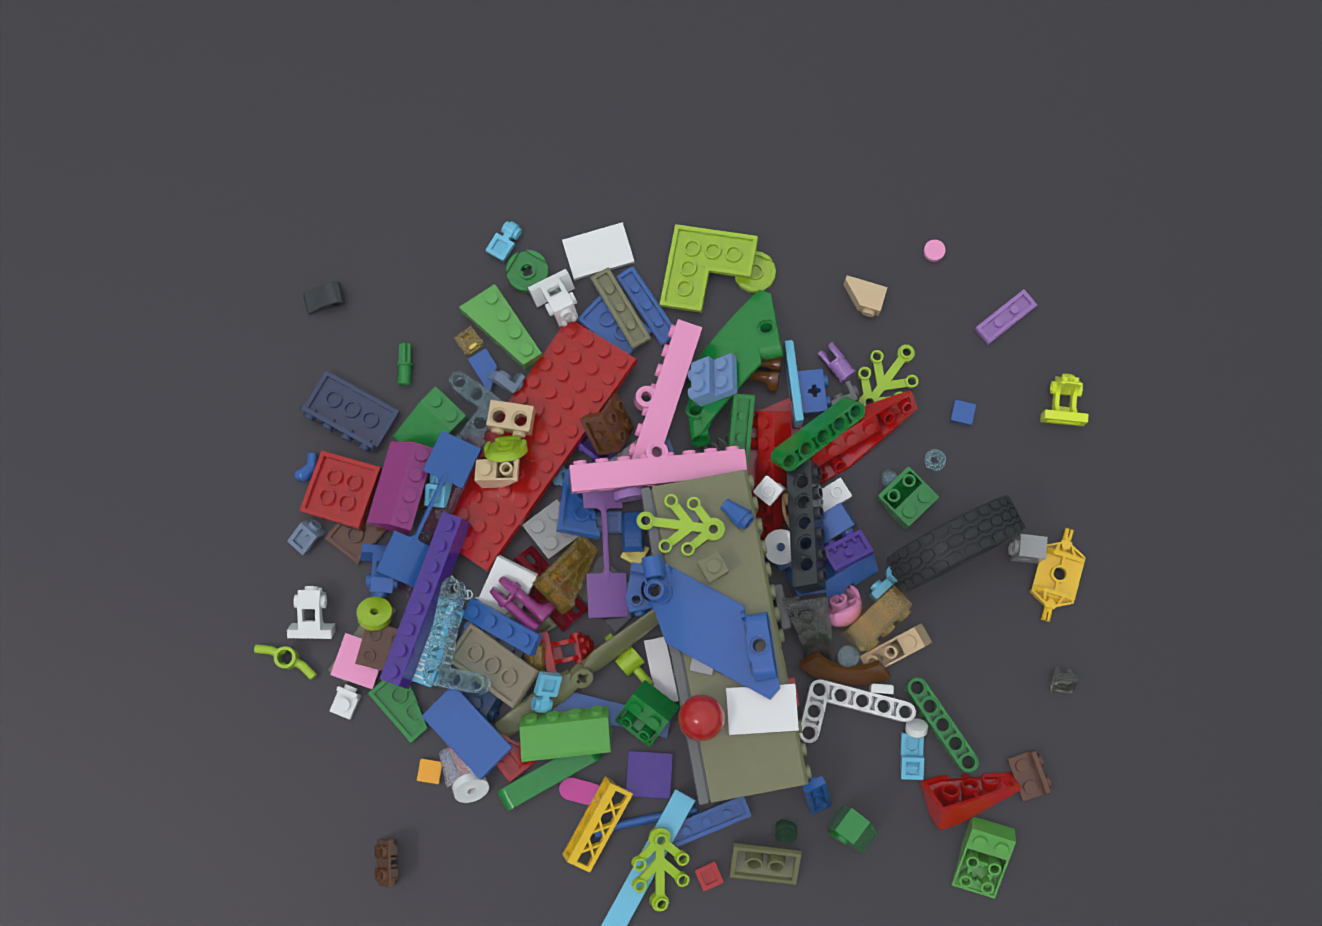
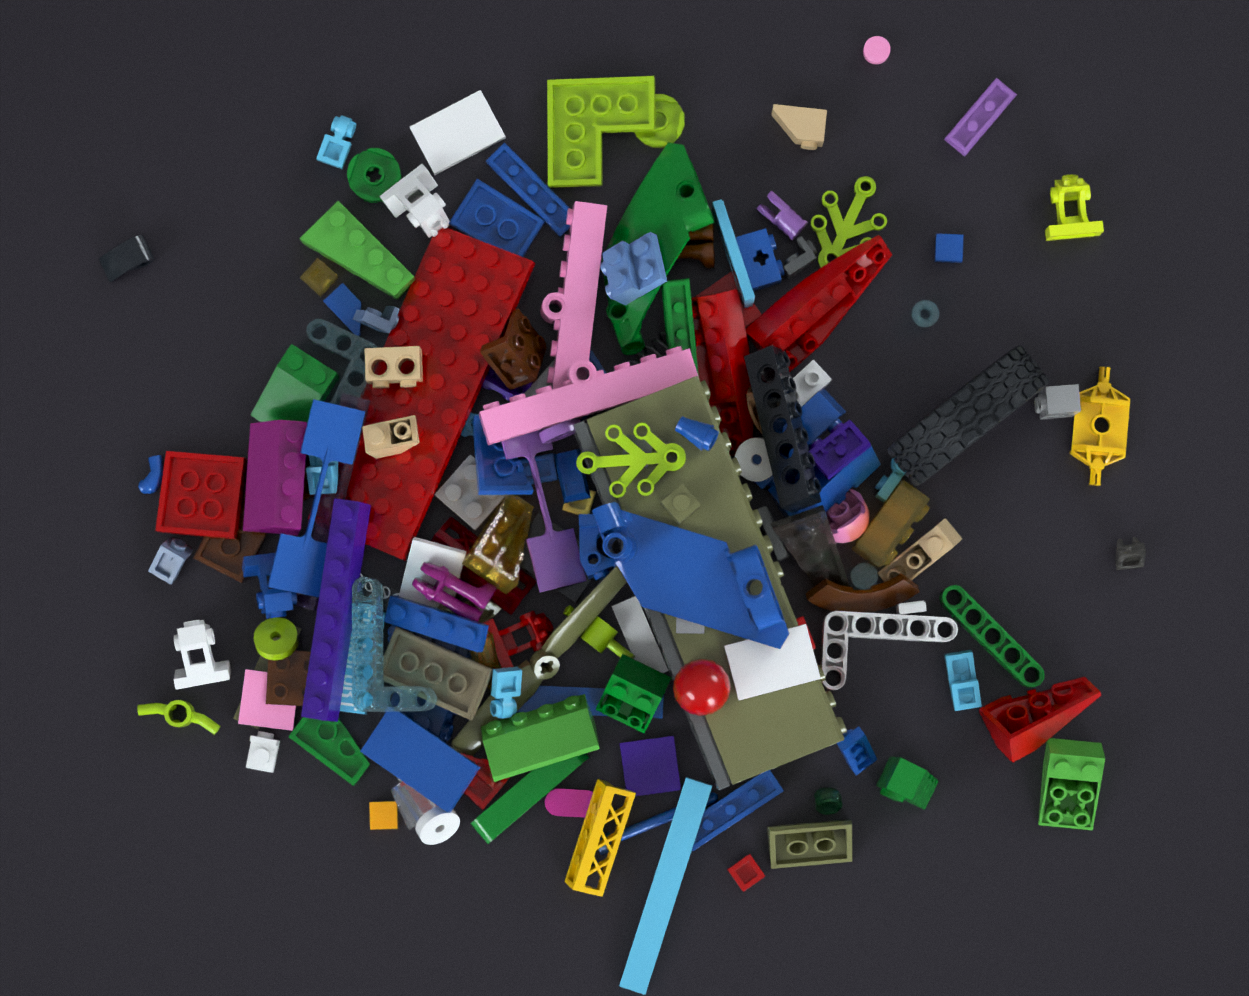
camera: 15 degrees left, 5 degrees up
(350, 412) = (190, 396): dark blue bracket -> none
(383, 872) = (354, 946): reddish brown hinge -> none
(404, 364) = (245, 322): green axle -> none
(505, 449) = (395, 405): lime tile -> none
(620, 308) = (500, 200): olive tile -> none
(659, 866) = (683, 872): lime plant -> none
(768, 490) = (729, 394): white bracket -> none
(817, 433) = (775, 311): green beam -> none
(888, 477) = (873, 348): clear light blue plate -> none
(907, 497) = (900, 368): green slope -> none
(916, 728) = (962, 646): white tile -> none
(1029, 774) = (1107, 674): reddish brown bracket -> none

